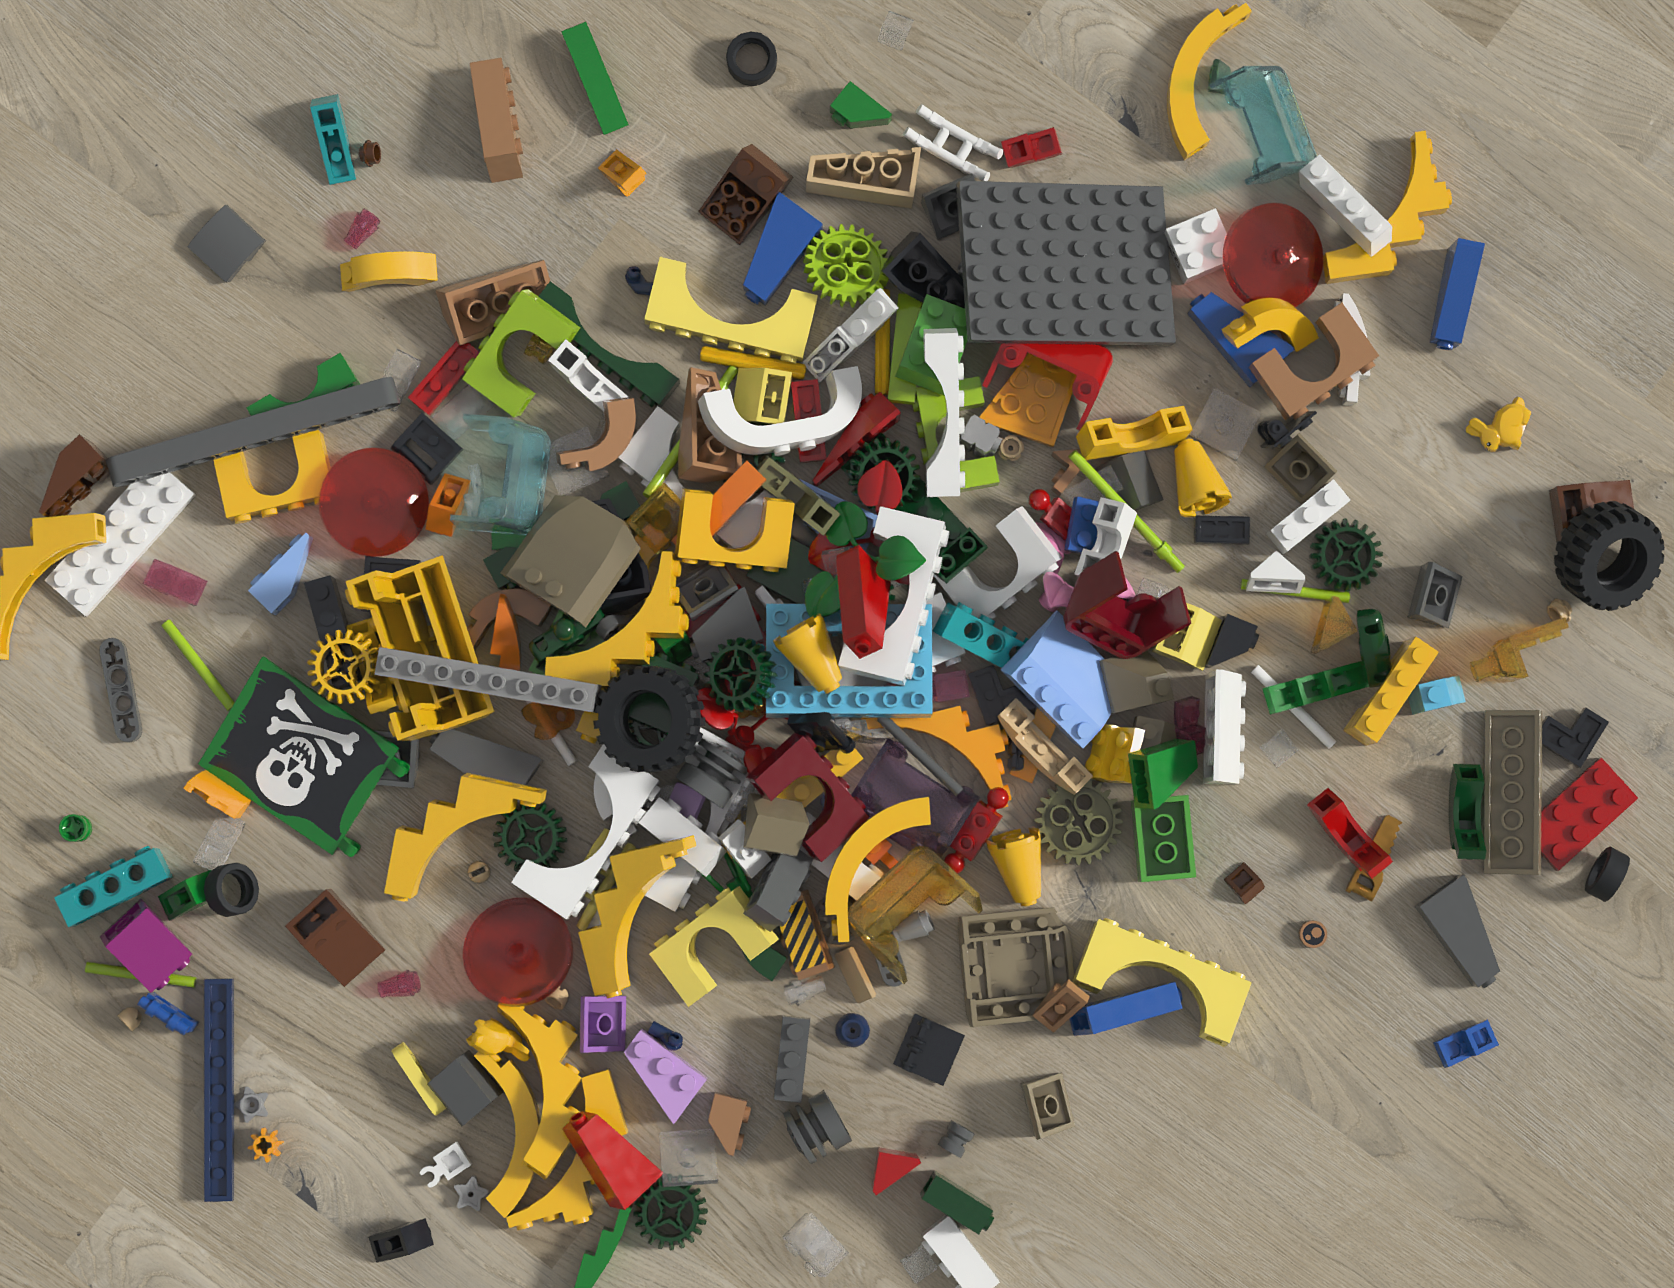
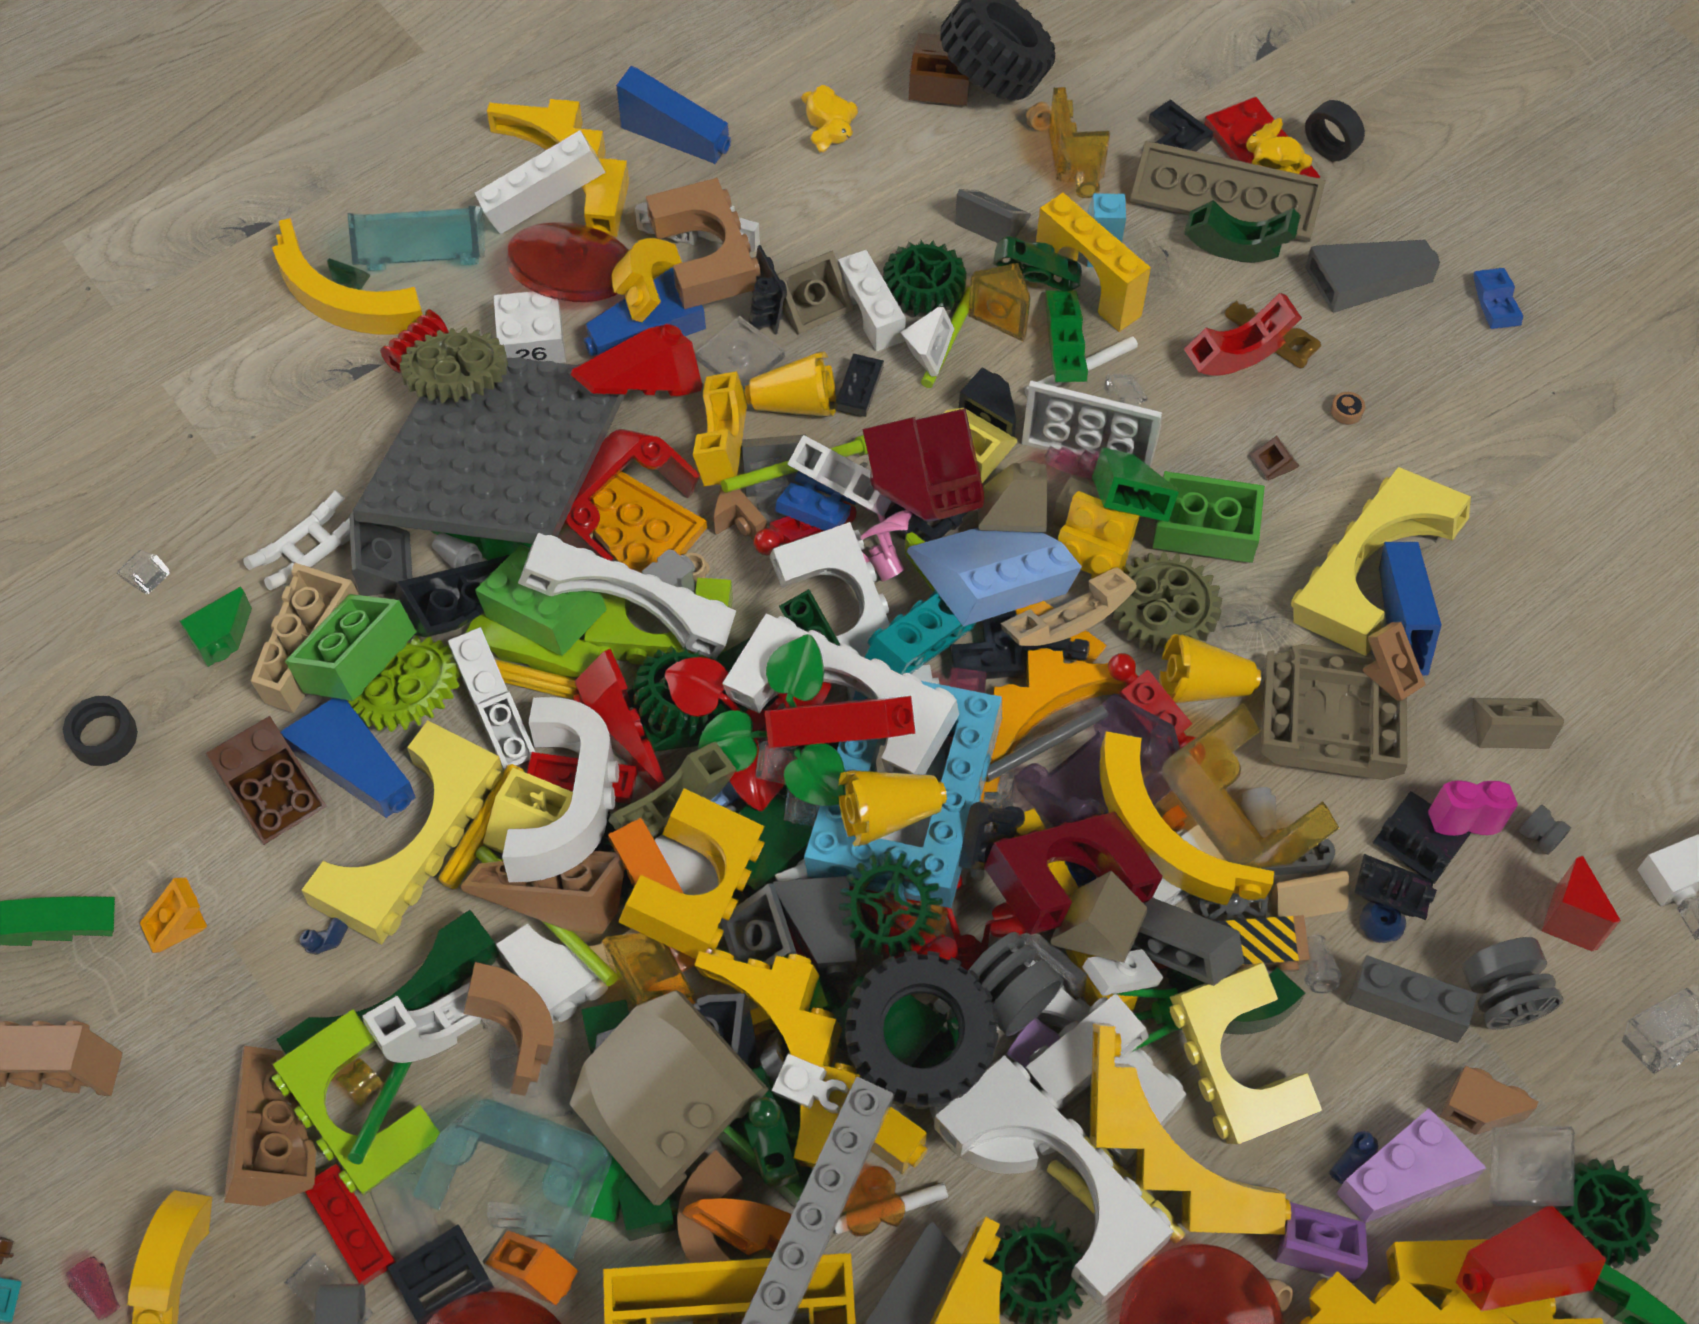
camera: 70 degrees left, 25 degrees down
(512, 369) = (378, 1112): none -> green bar
(593, 649) = (804, 1083): none -> white plate
(857, 218) = (351, 647): none -> bright green brick
(877, 1033) = (1394, 887): none -> black hinge
(955, 1086) = (1472, 808): none -> dark pink brick
(957, 1203) = (1633, 839): dark green brick -> none
(1031, 148) = (347, 464): red slope -> none
(1151, 219) = (454, 365): none -> olive gear
(1158, 162) = (425, 324): none -> red piece
(1179, 356) = (646, 362): none -> red wedge
(1561, 826) = (1277, 152): none -> yellow animal

